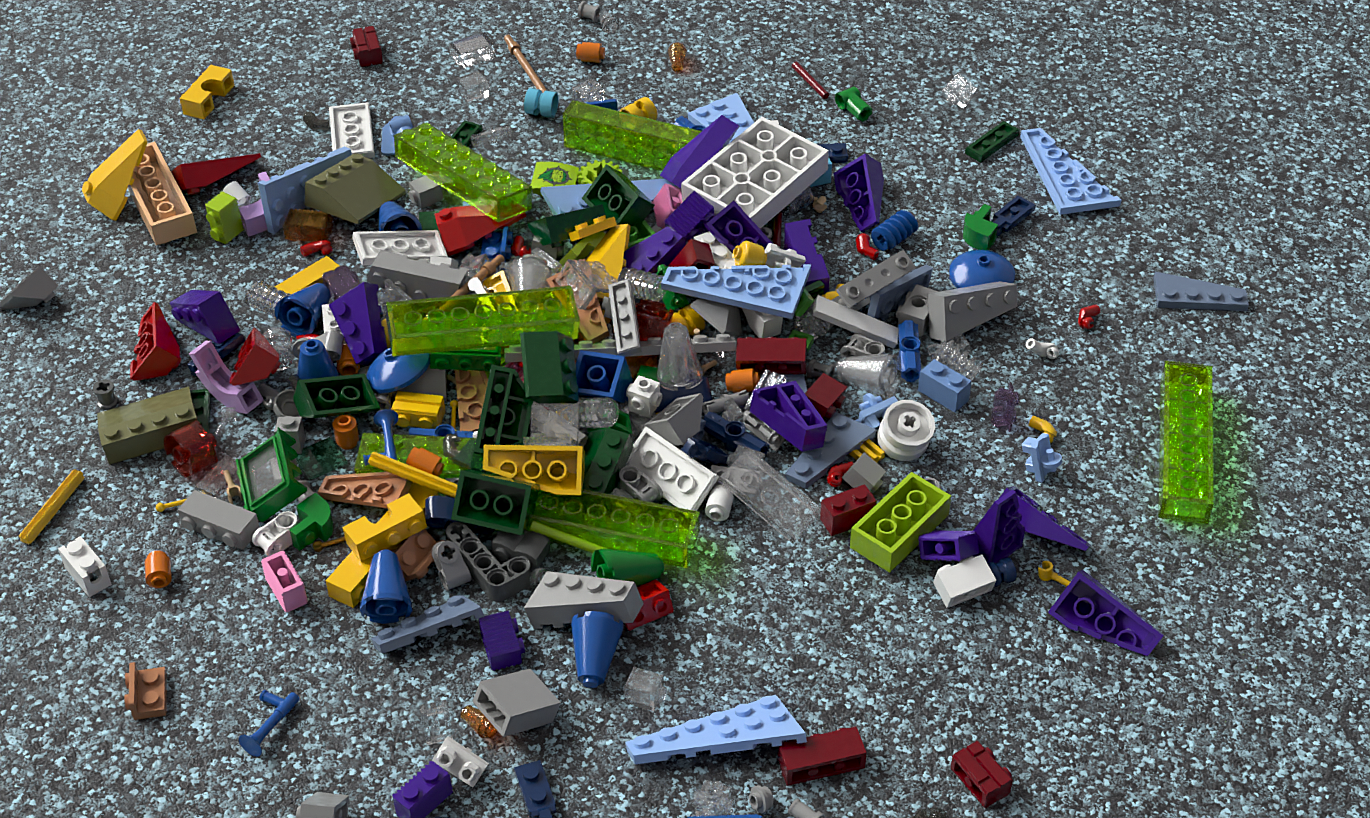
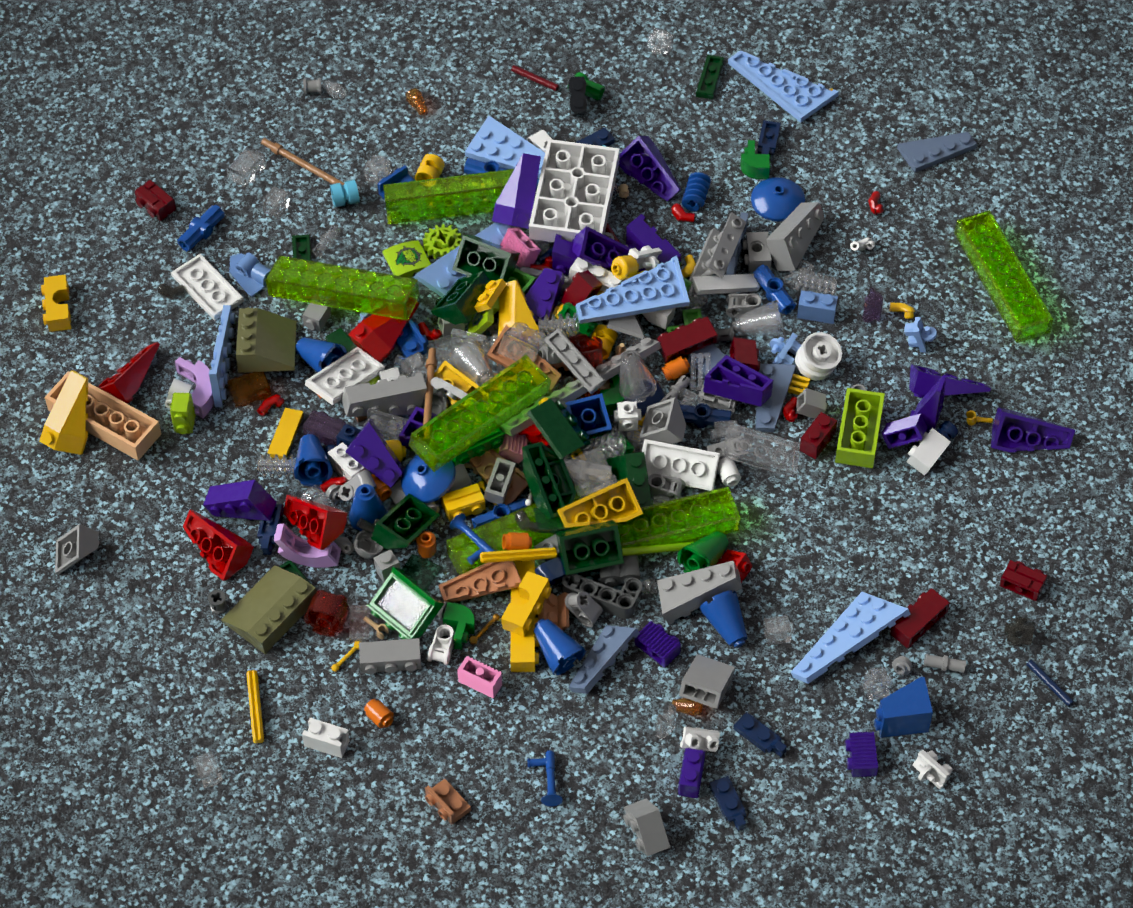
camera: 30 degrees left, 10 degrees up
(227, 414) = (324, 572): clear hand -> none
(387, 82) = (200, 228): none -> blue piece
(461, 401) = (499, 481): none -> light grey brick
(590, 52) = (344, 126): orange brick -> none
(690, 216) = (557, 252): dark purple brick -> none
(705, 451) = (696, 438): dark blue hinge -> none
(836, 101) = (577, 92): none -> black brick

